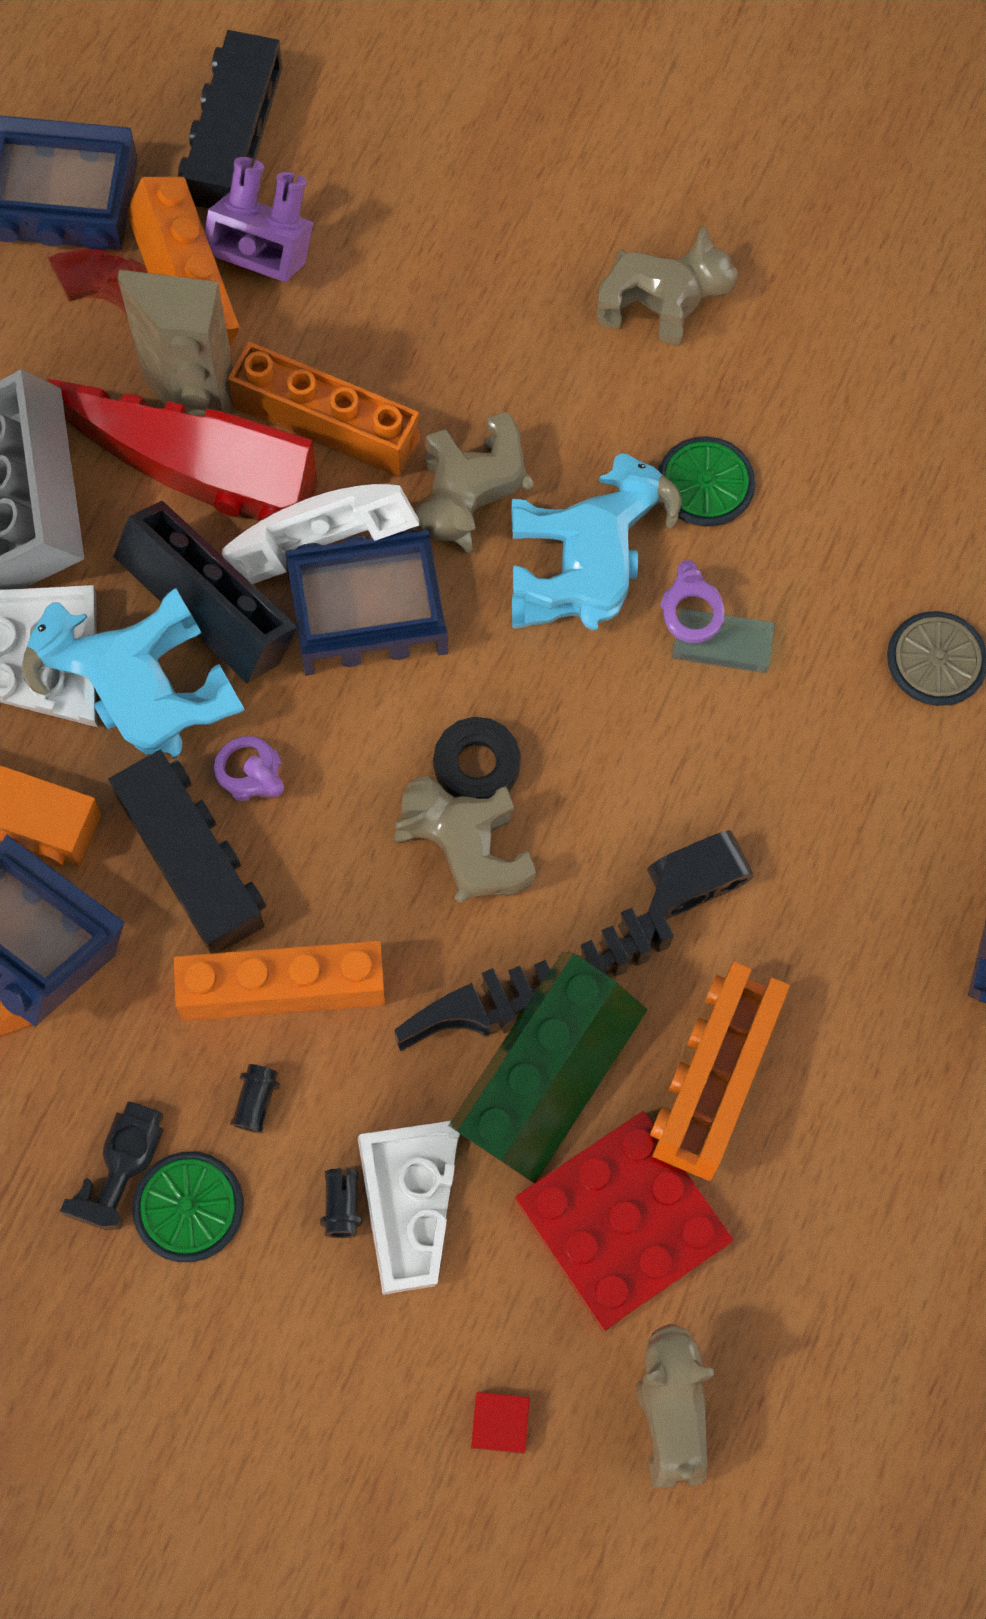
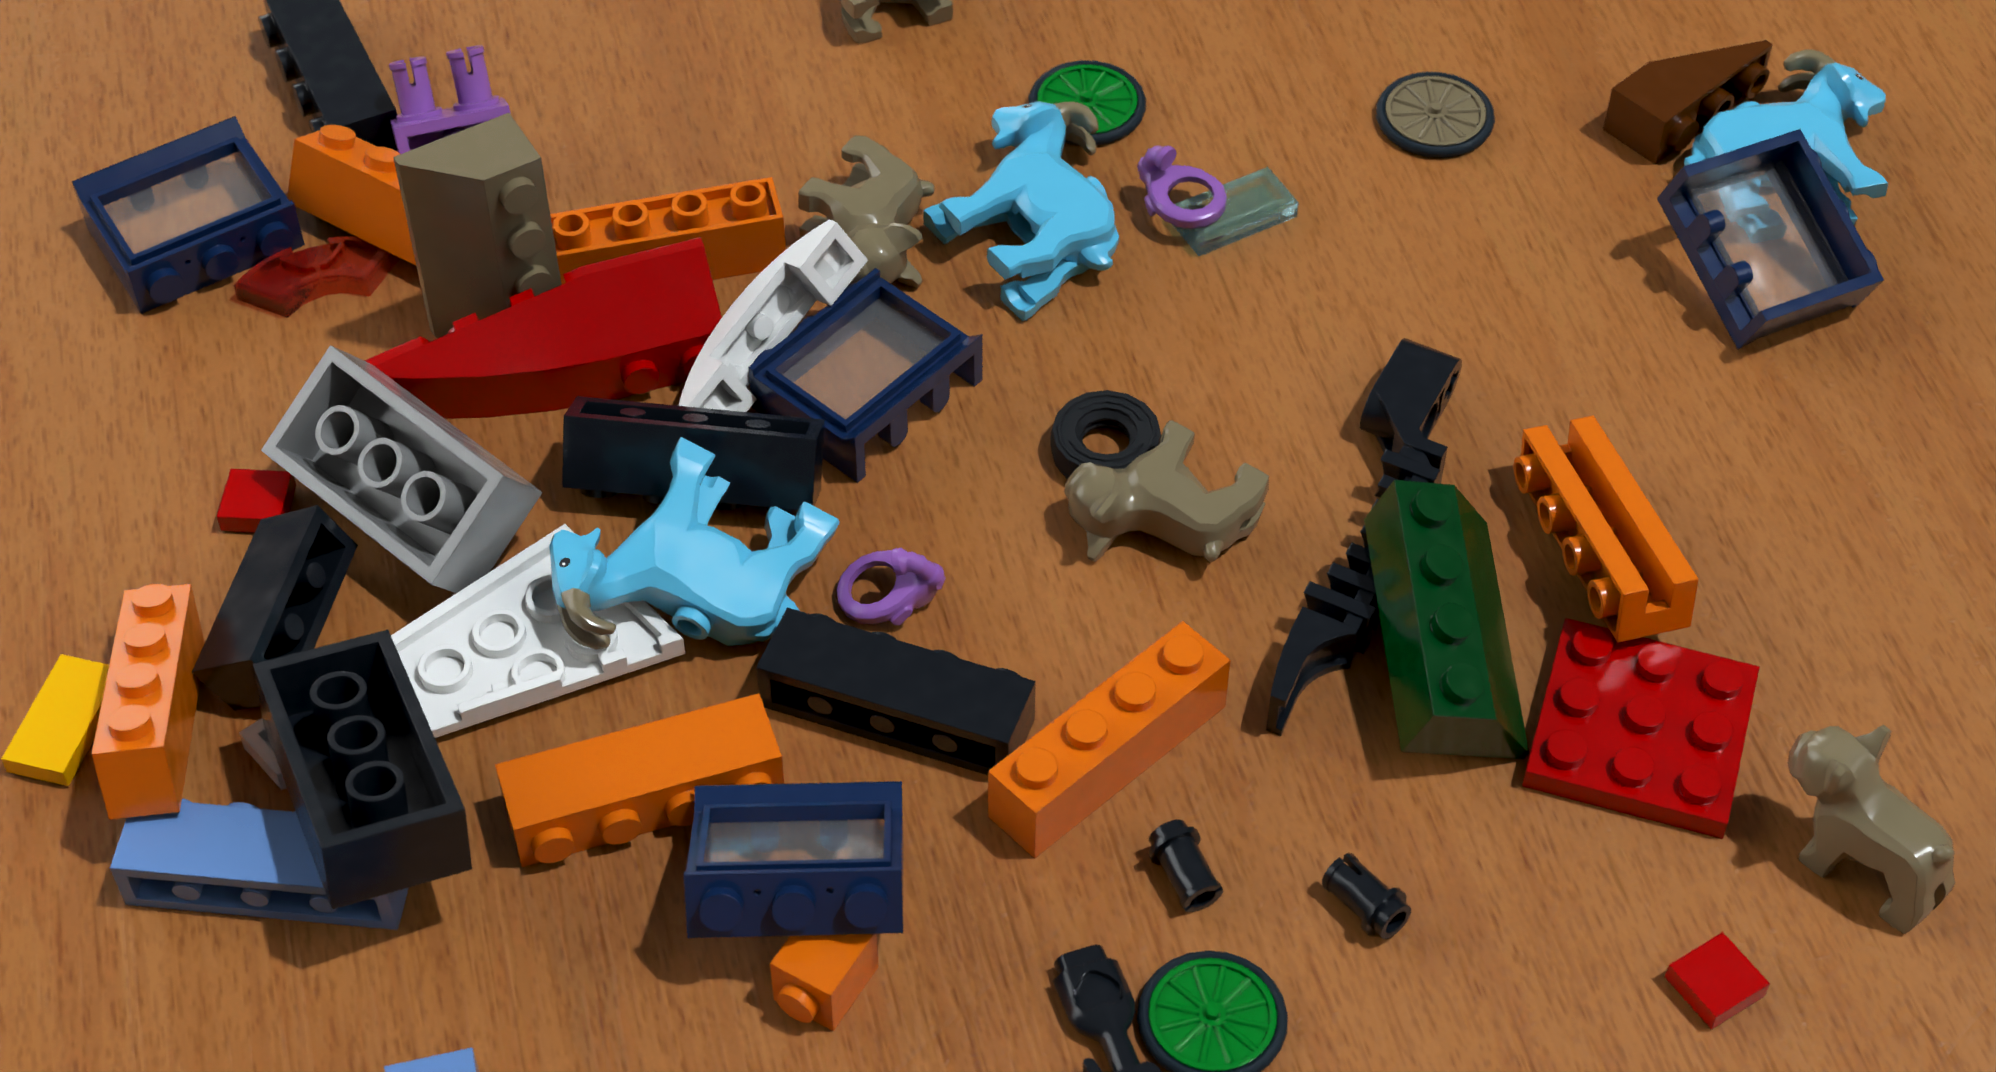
camera: 35 degrees left, 20 degrees down
(408, 1197) = (1425, 846): white wing -> none

